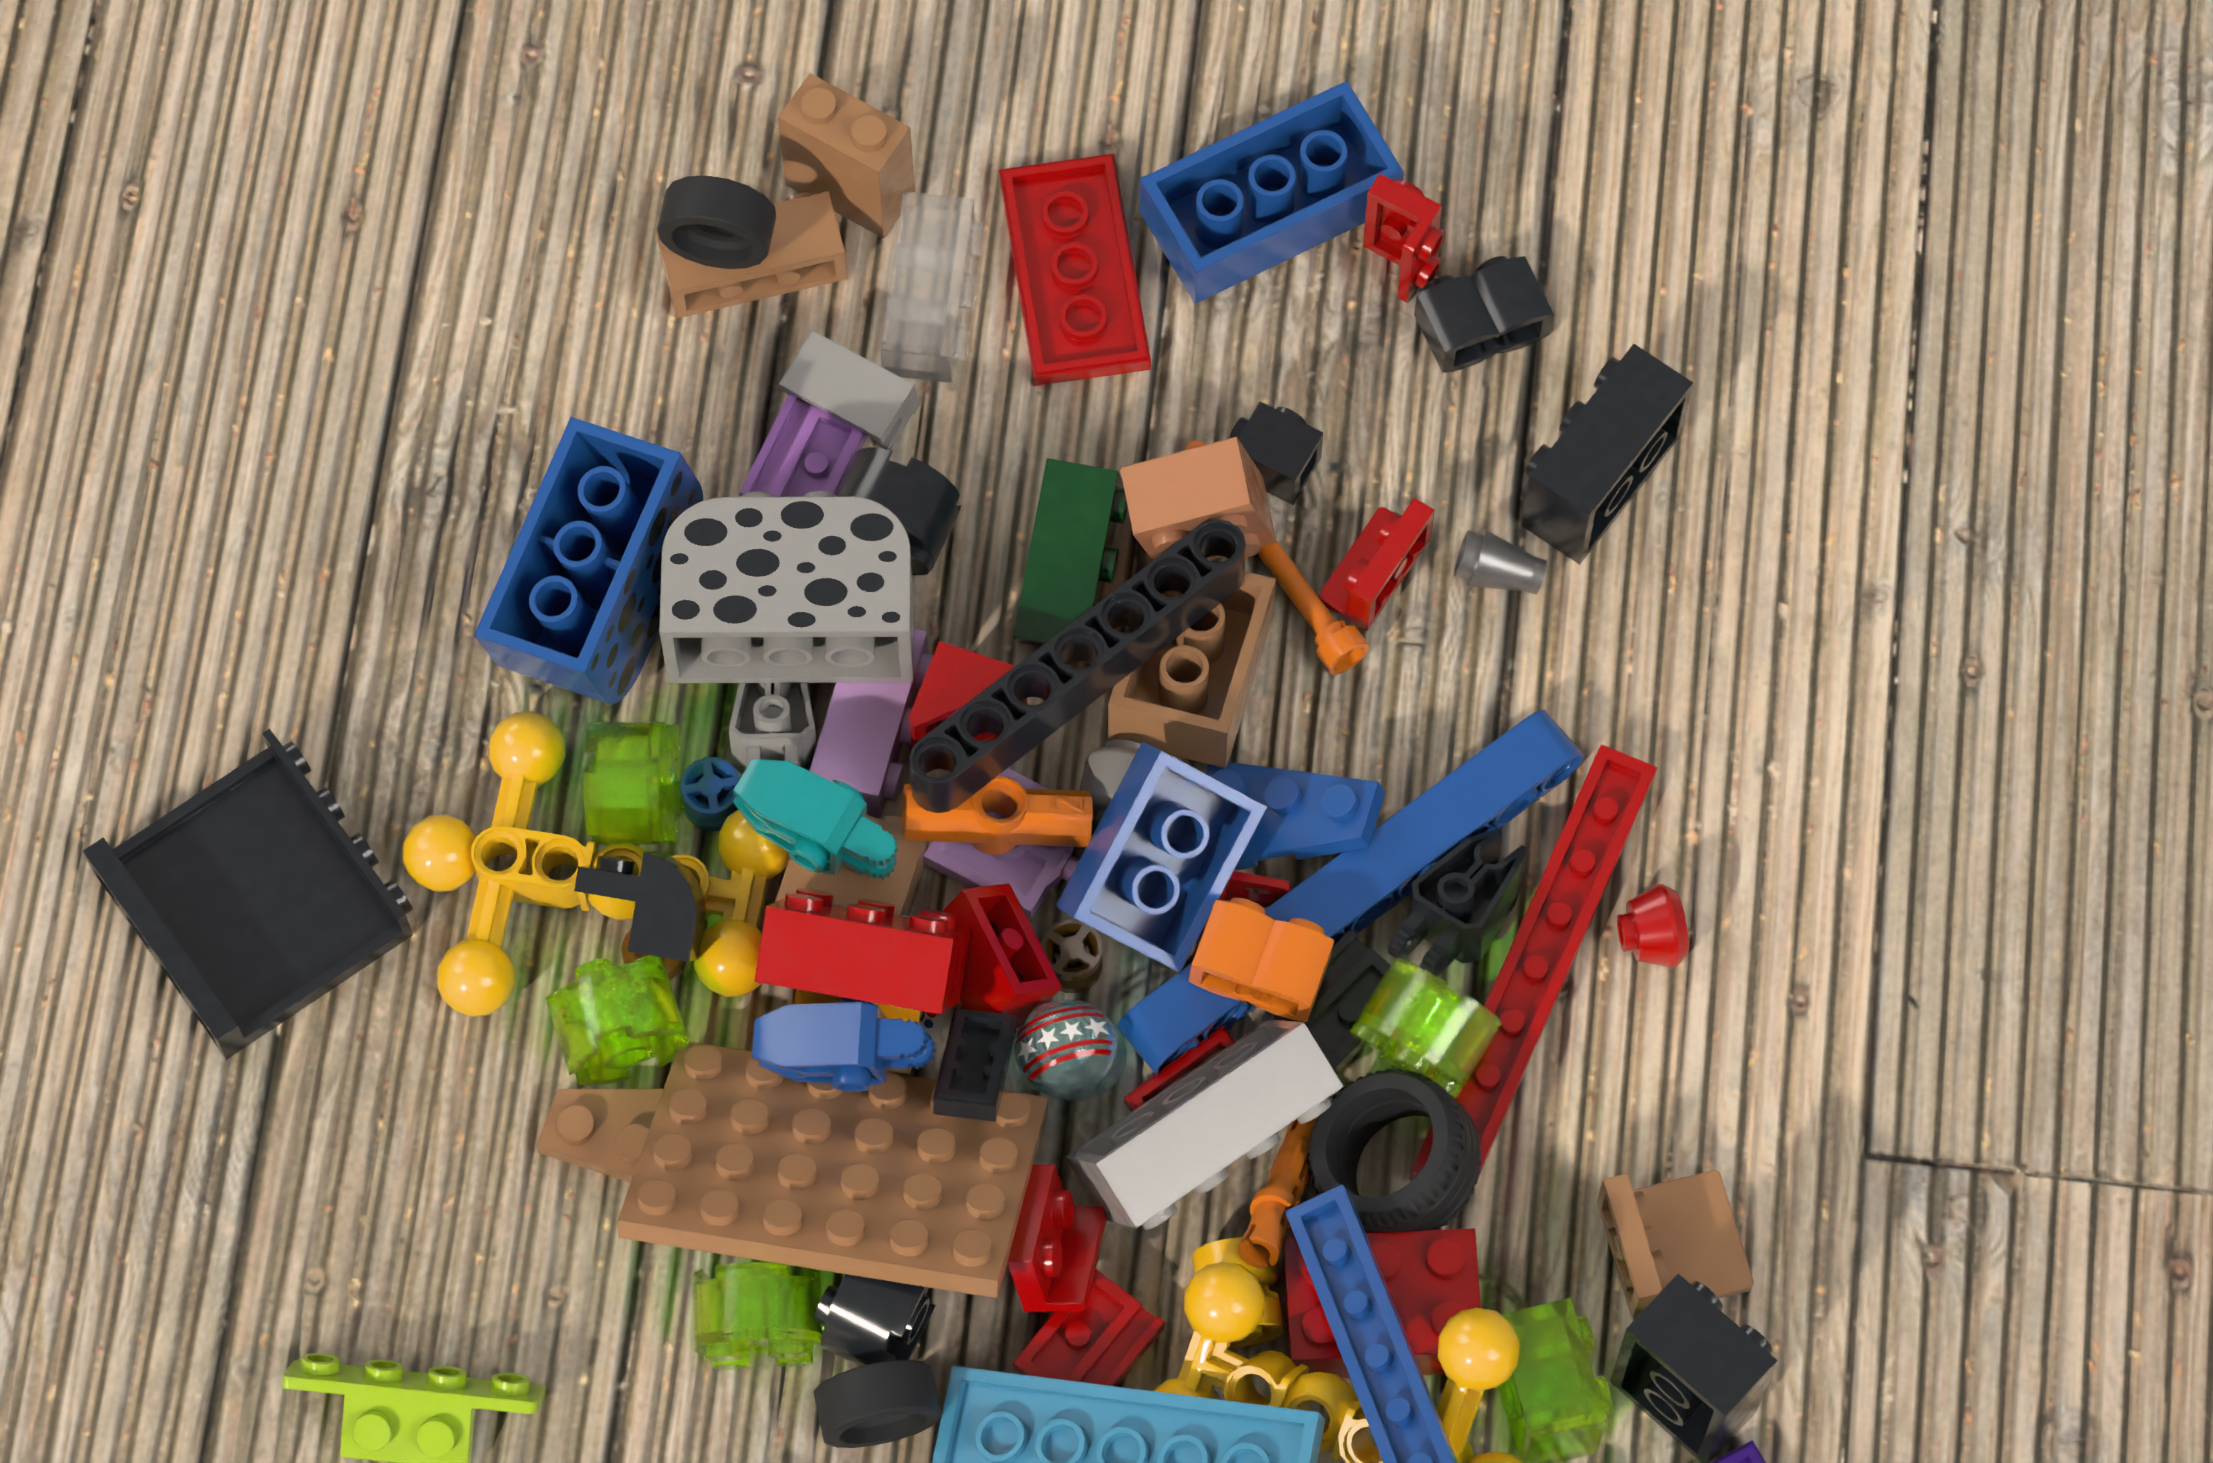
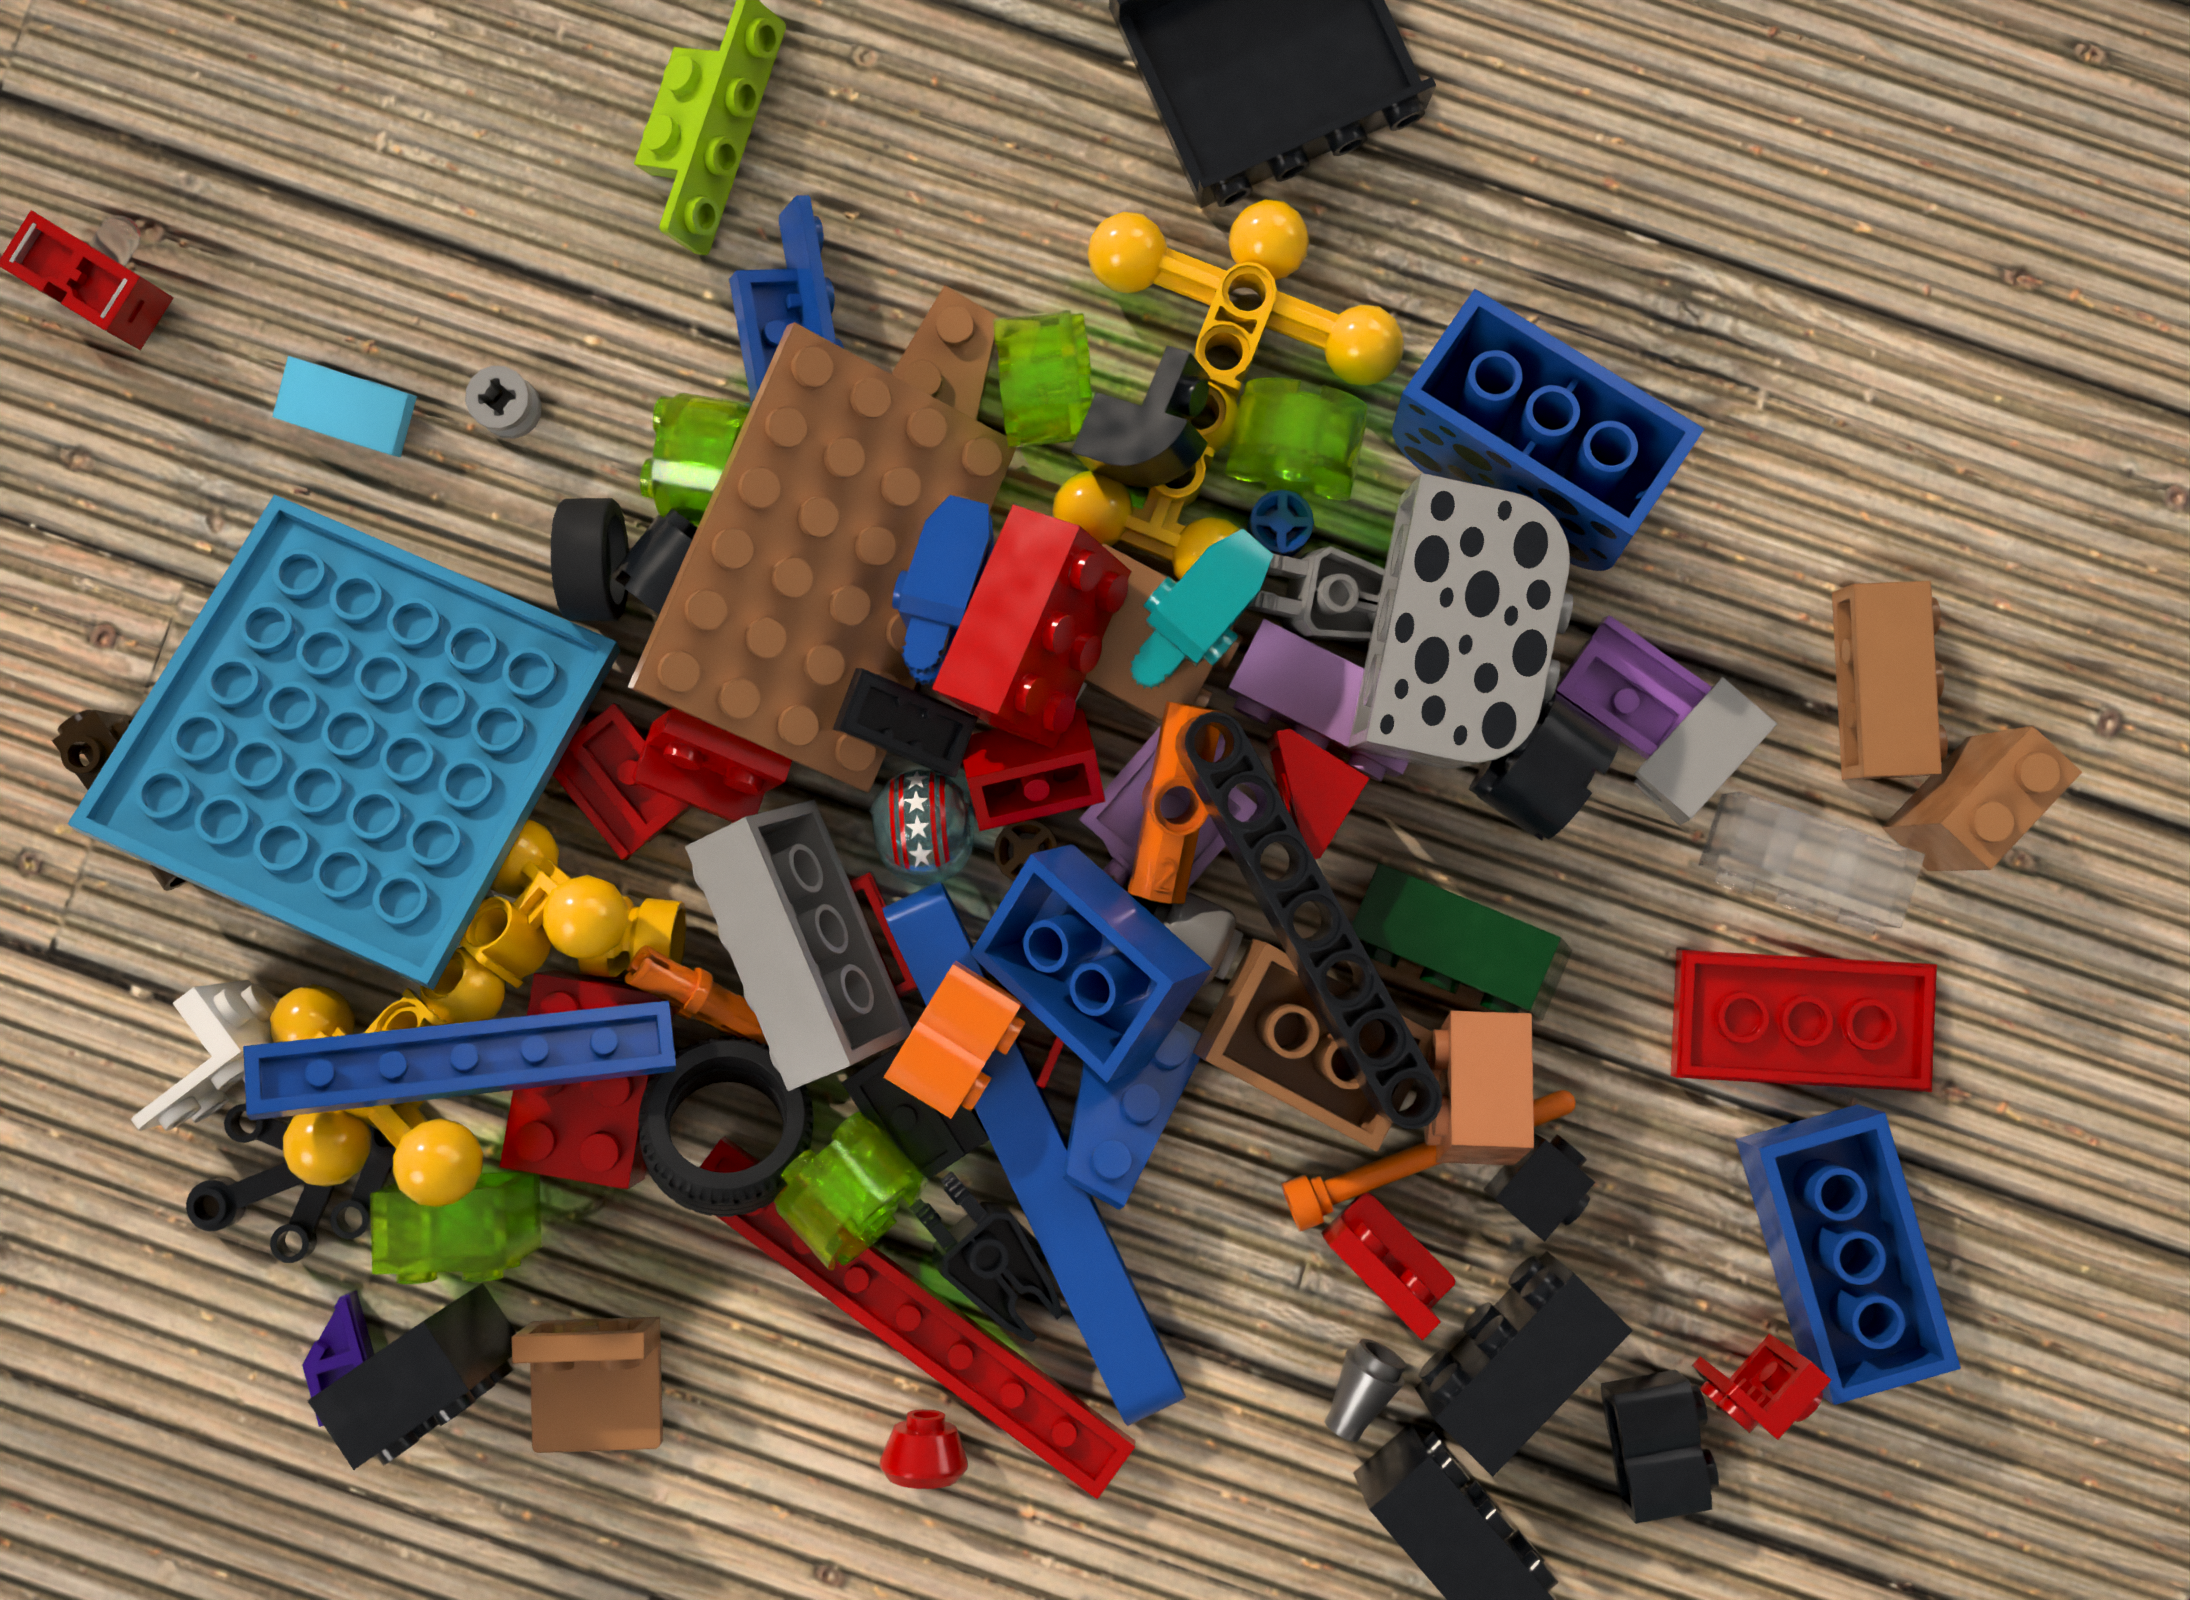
camera: 105 degrees right, 20 degrees up
(589, 1280) = (777, 297): none -> blue bracket
(716, 222) = (1919, 638): black tyre -> none
(1432, 432) = (1519, 1360): none -> black brick

